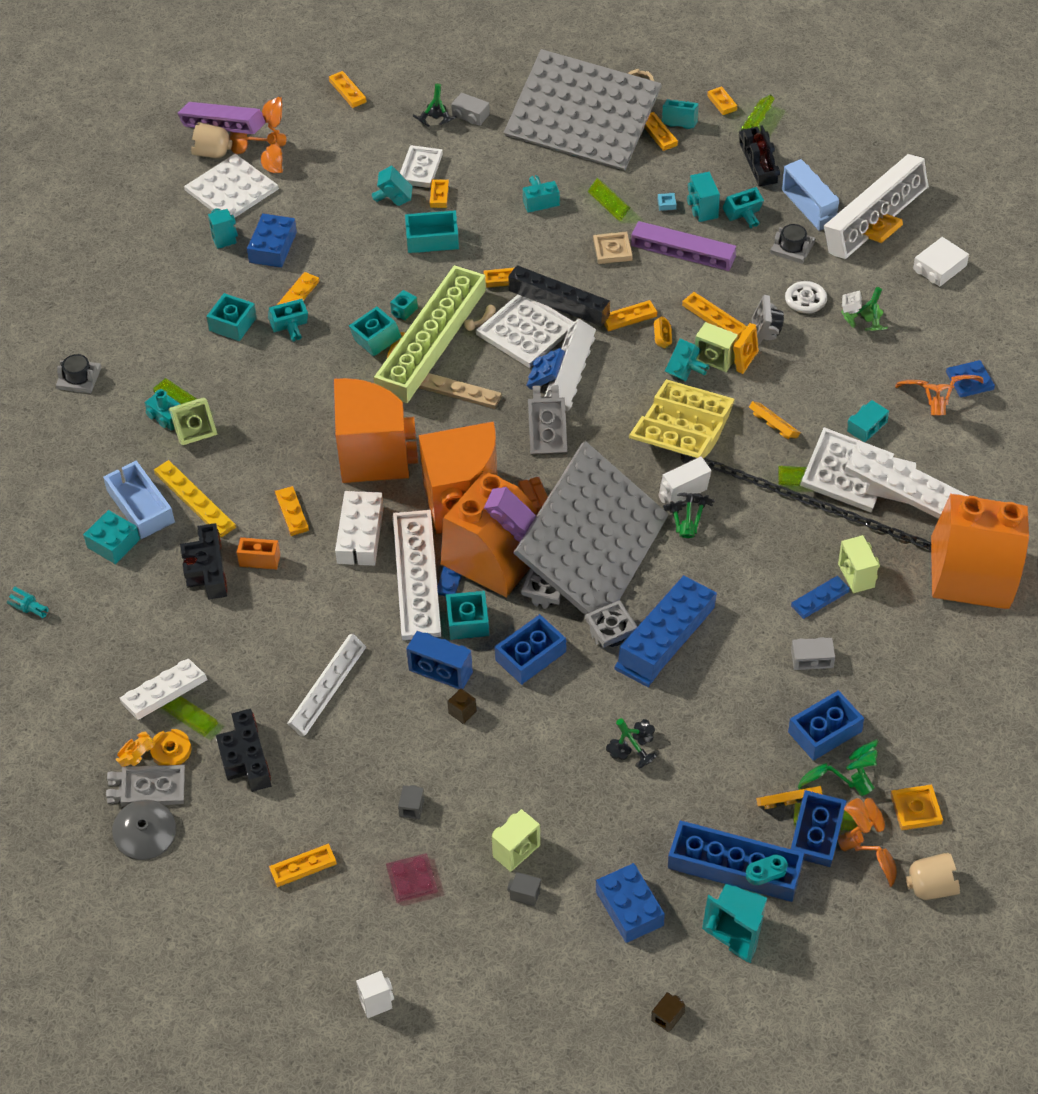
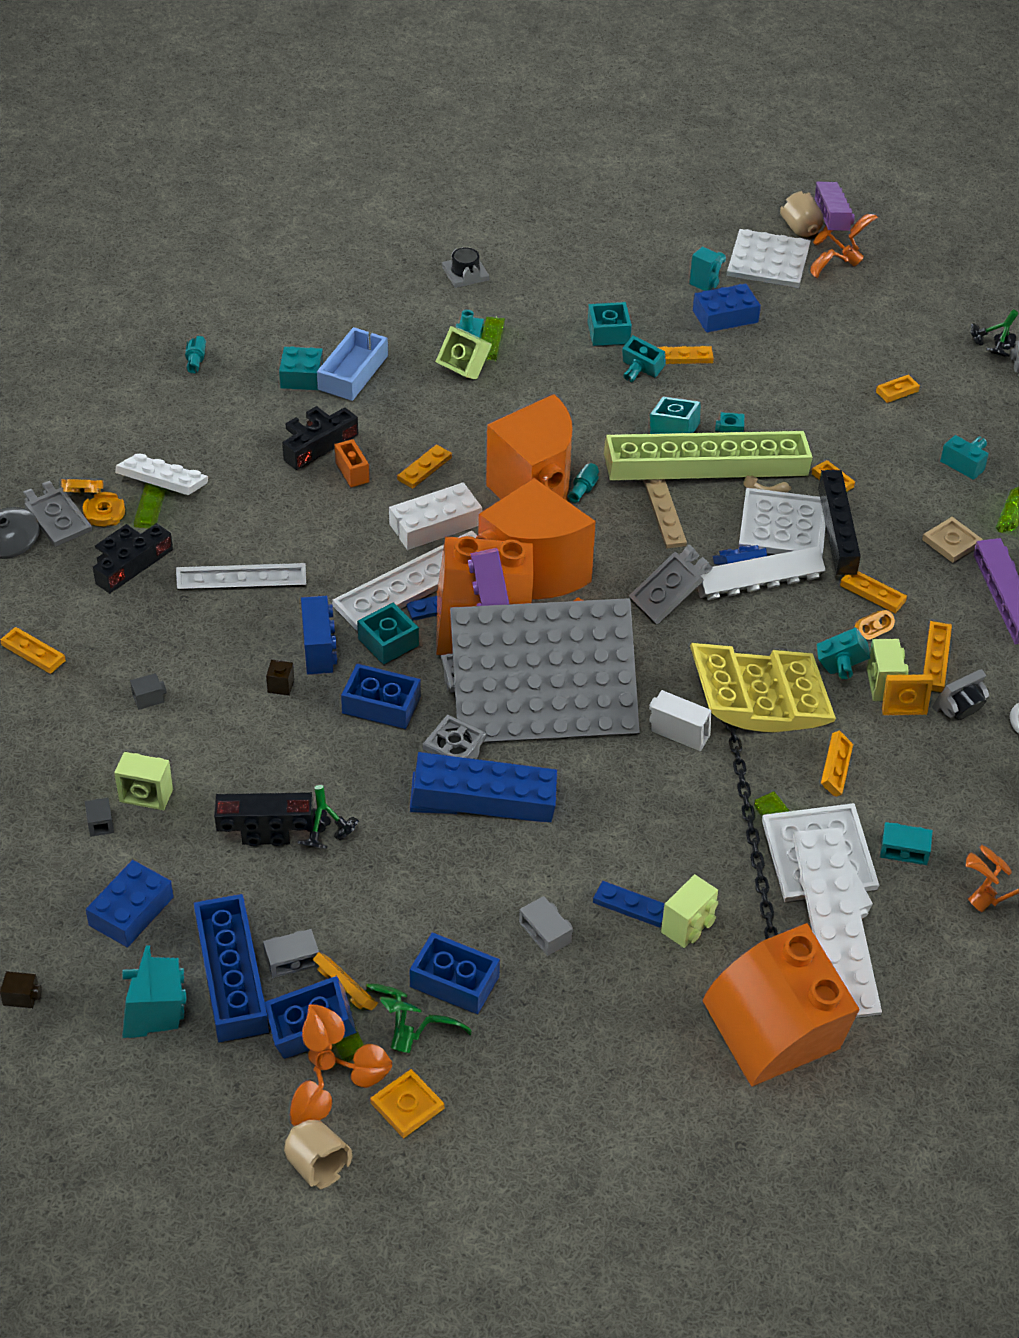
camera: 55 degrees right, 5 degrees down
(194, 497) = (388, 401): yellow plate -> none
(347, 89) = (965, 271): light orange plate -> none
(394, 186) = (867, 350): teal brick -> none
(411, 878) = (66, 731): clear pink plate -> none
(421, 165) = (919, 360): white plate -> none
(432, 231) = (838, 402): teal piece -> none
(610, 773) = (264, 816): none -> black piece
(687, 528) = (630, 752): plant -> none
(742, 815) = (290, 953): none -> light grey brick
(767, 870) = (219, 989): teal plate -> none

